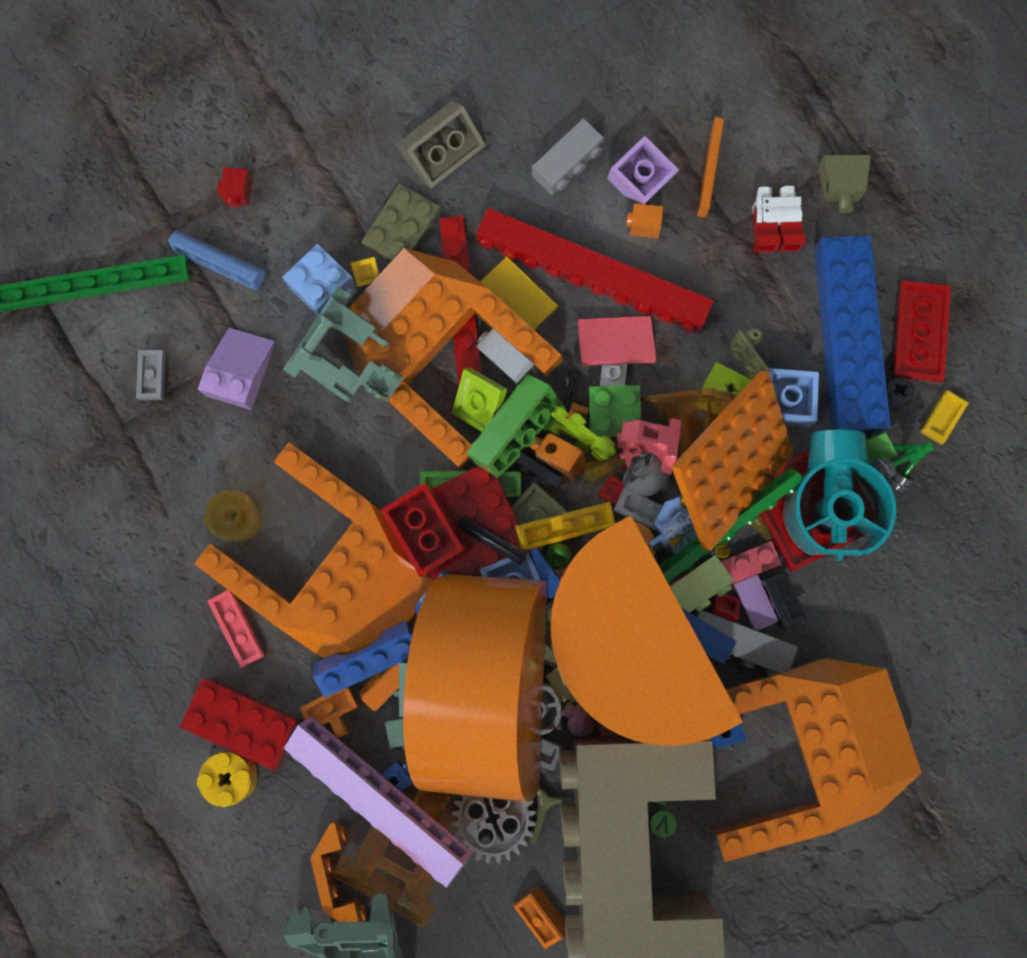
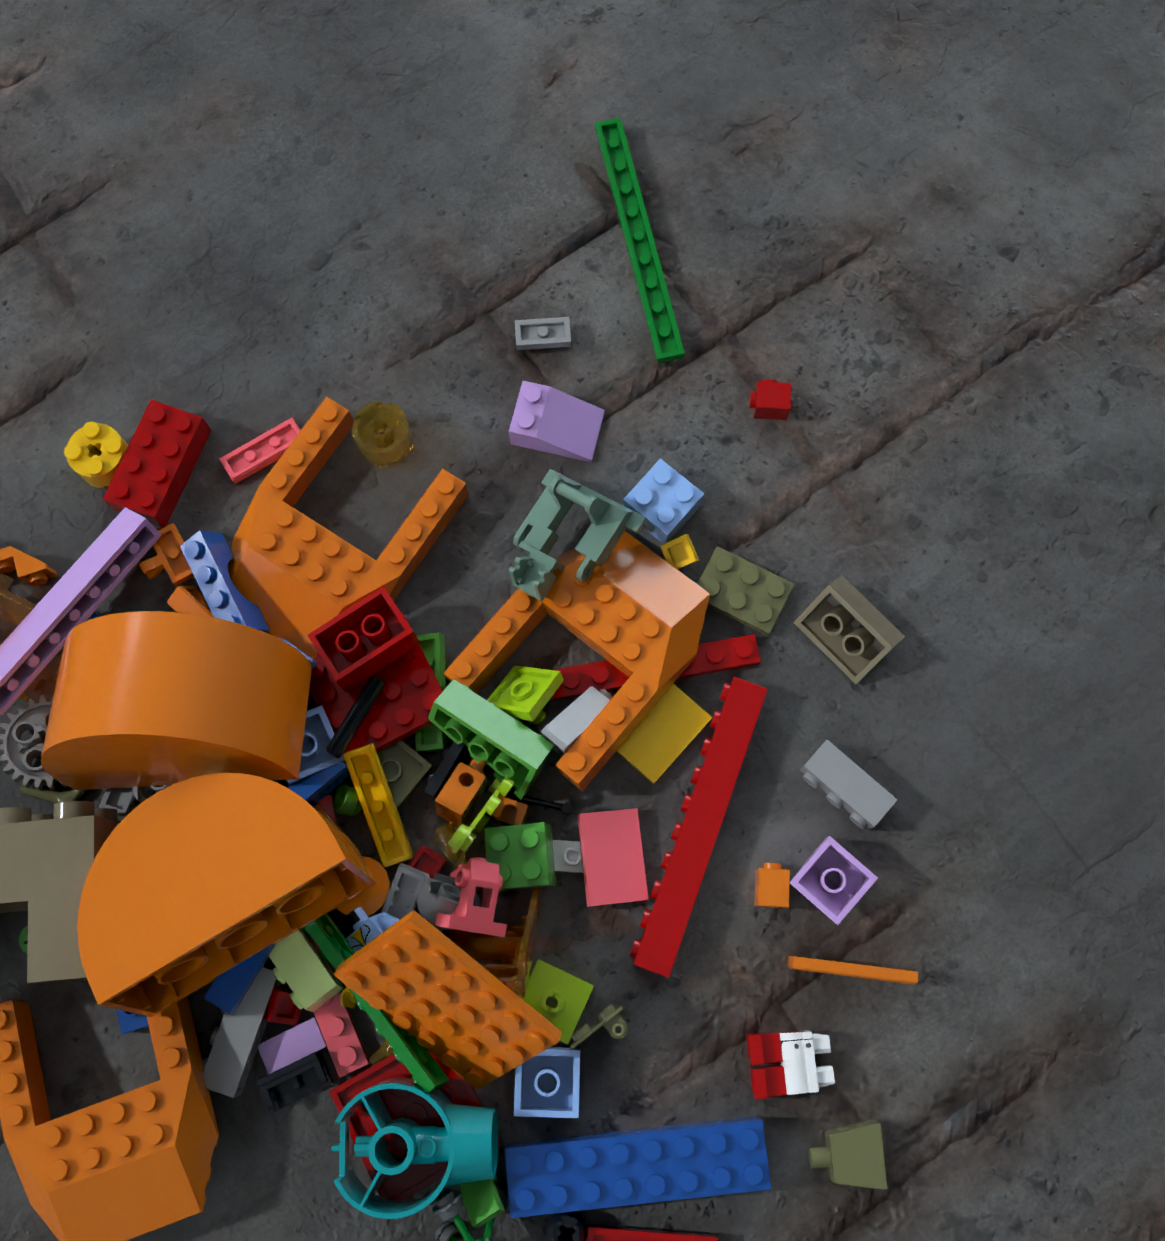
camera: 85 degrees right, 5 degrees down
(217, 260) = (683, 389): medium blue brick -> none

